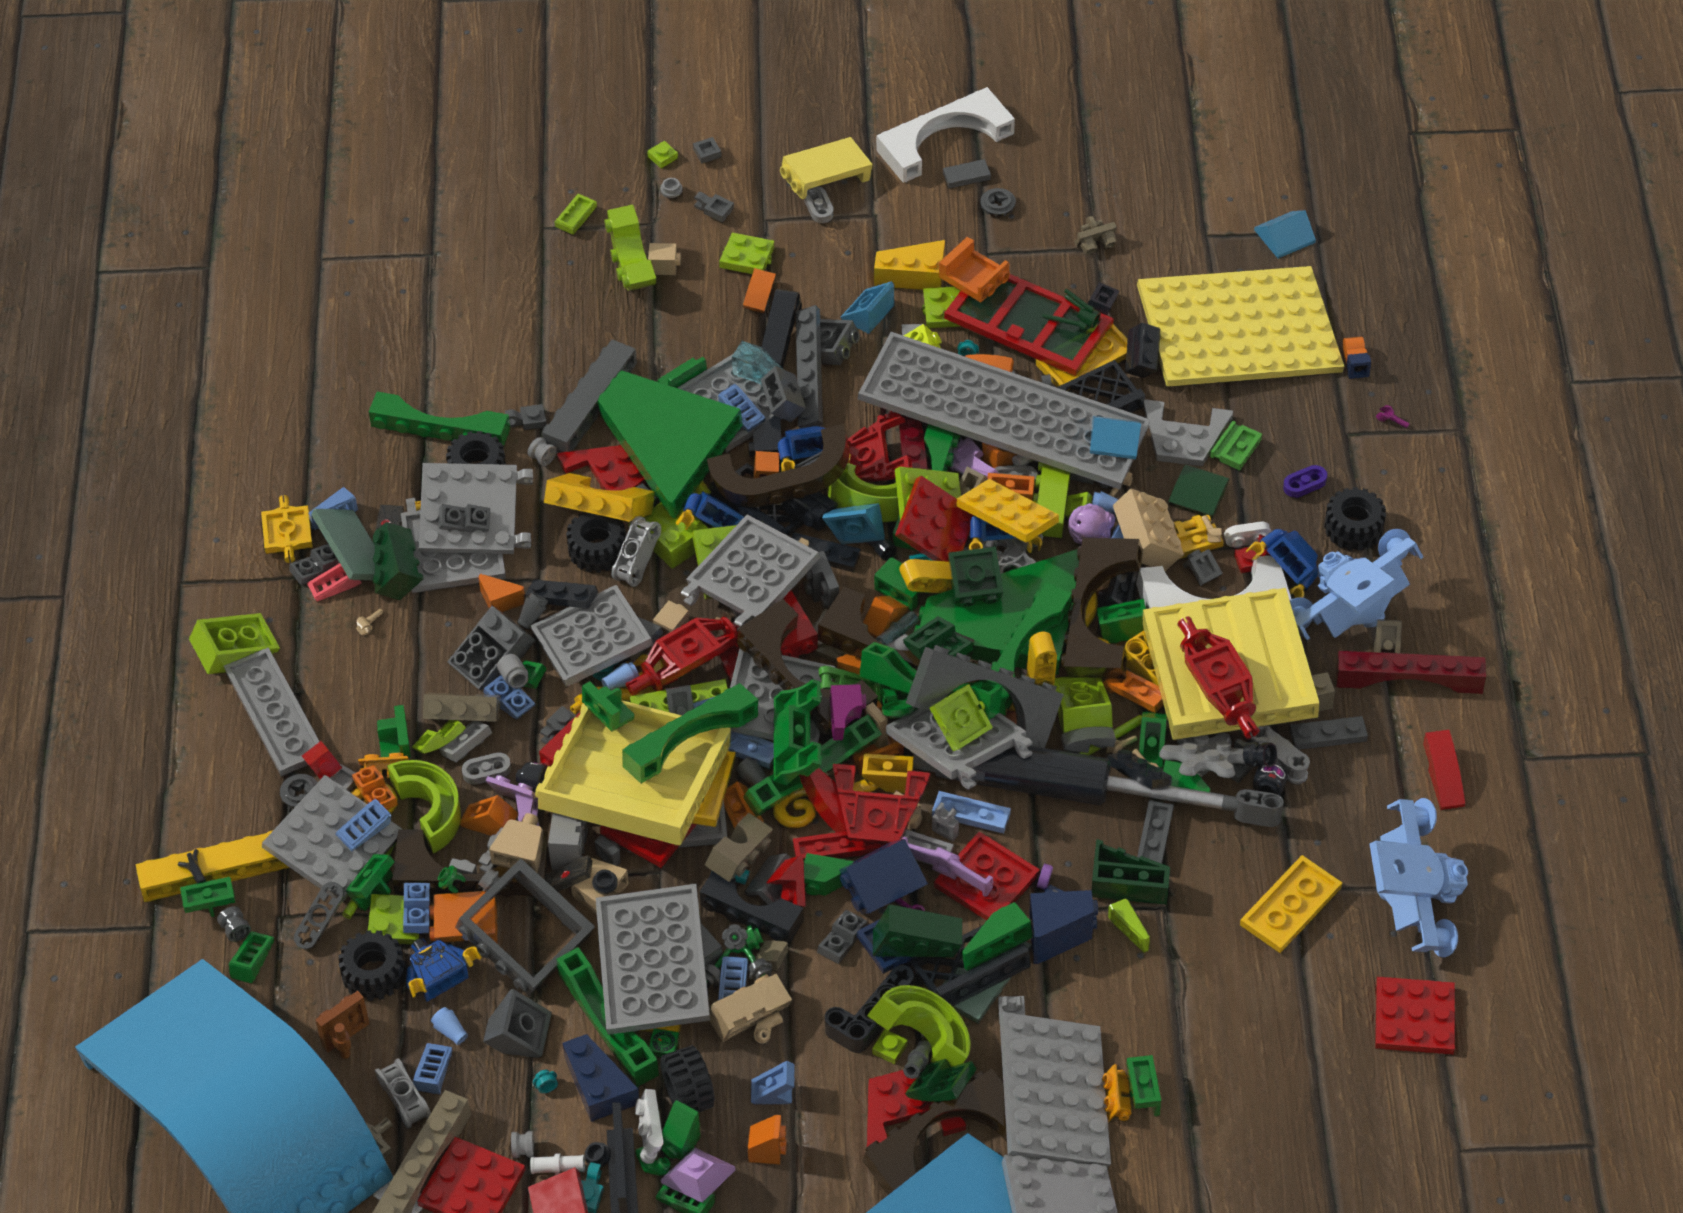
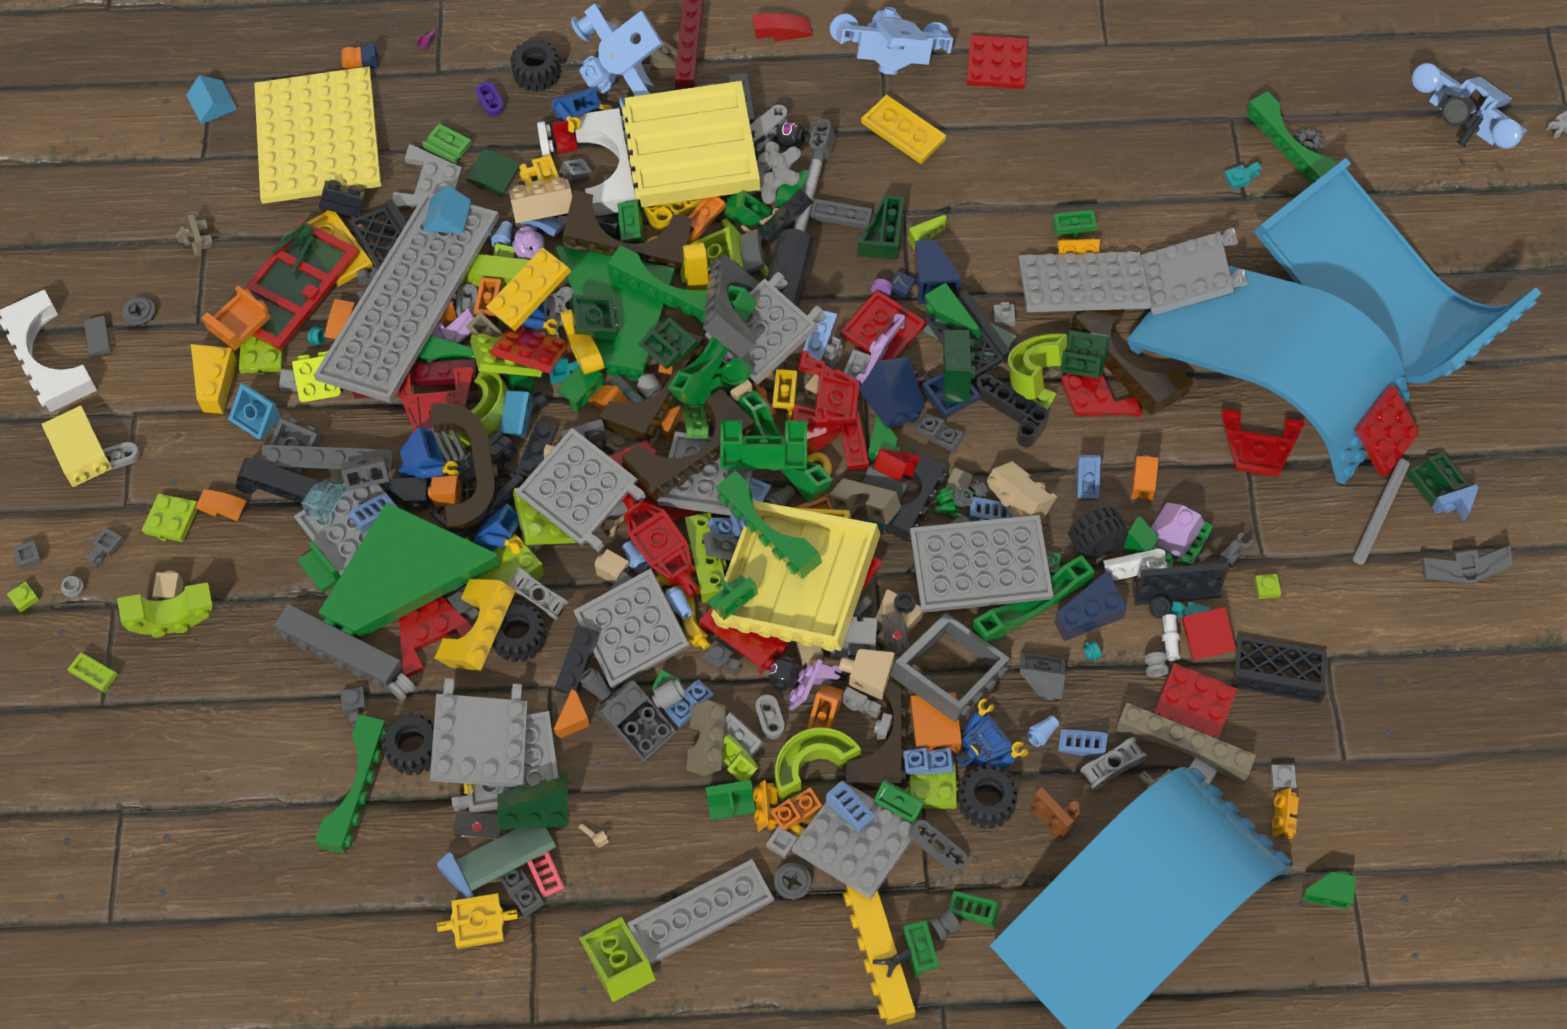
camera: 90 degrees left, 10 degrees up
(321, 761) = (767, 857): red brick -> none
(447, 877) = (904, 730): green plate -> none
(464, 519) = (495, 739): dark grey slope -> none
(489, 879) = (905, 696): light grey plate -> none
(845, 706) = (741, 407): magenta arch -> none
(917, 1059) = (1062, 373): dark grey pin -> none
(961, 717) = (762, 314): lime plate -> none
(1103, 298) = (273, 229): black plate -> none
(1213, 534) = (547, 159): tan hand -> none
(1220, 675) = (719, 136): red plate -> none
(1260, 754) = (777, 131): black wheel -> none

